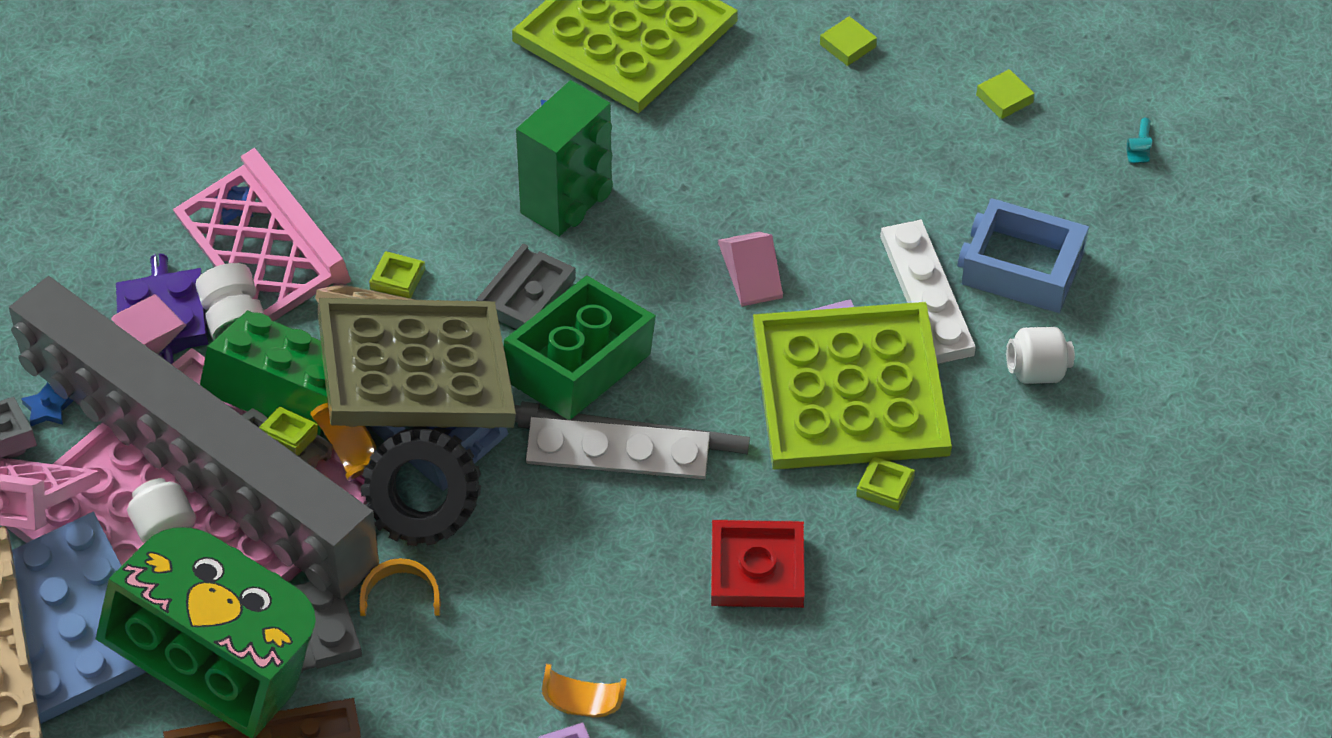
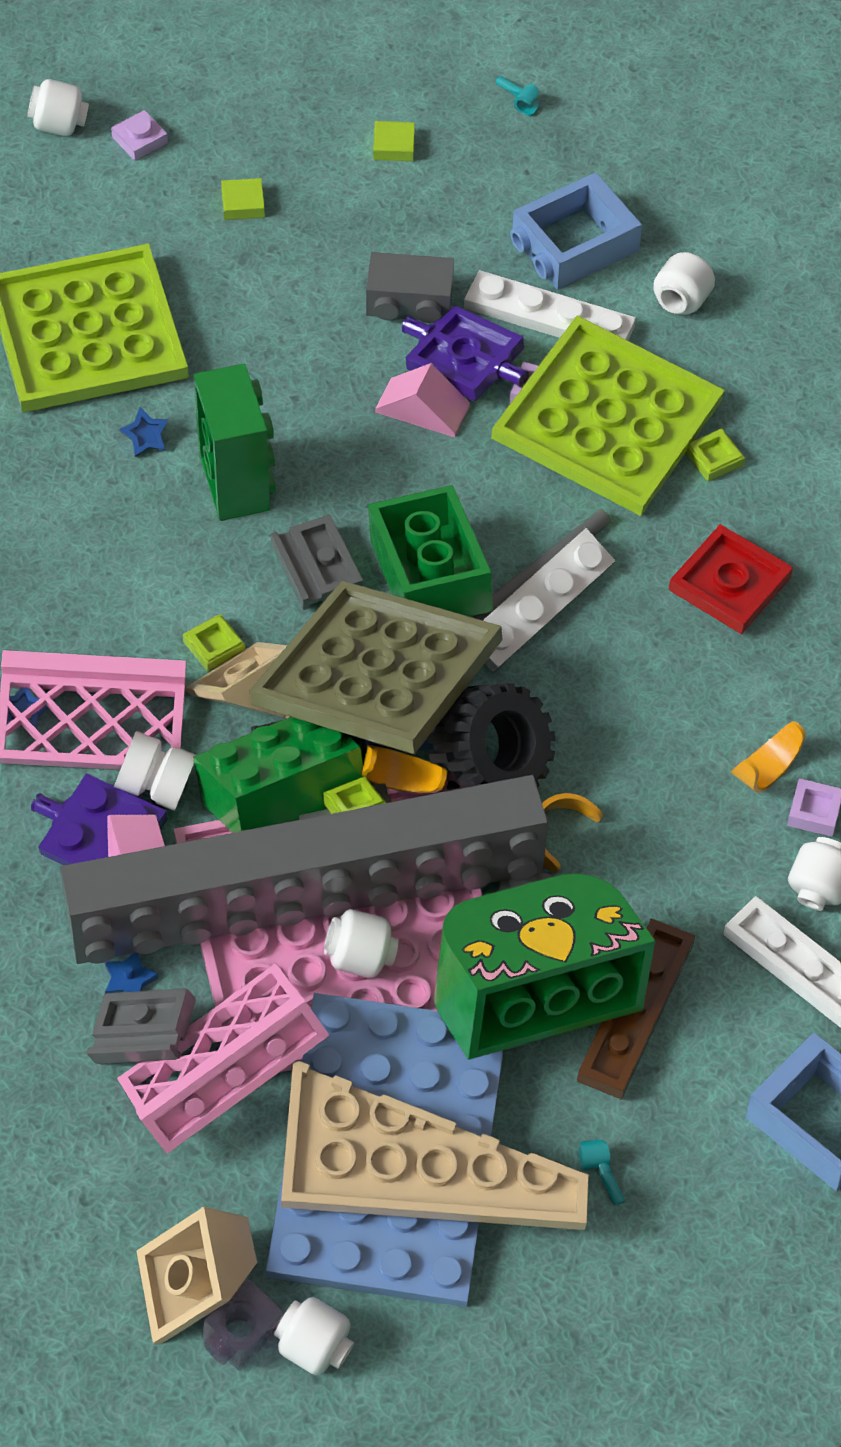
camera: 55 degrees left, 5 degrees up
(823, 258) = (466, 351): none -> dark purple plate
(854, 186) = (409, 286): none -> dark grey brick

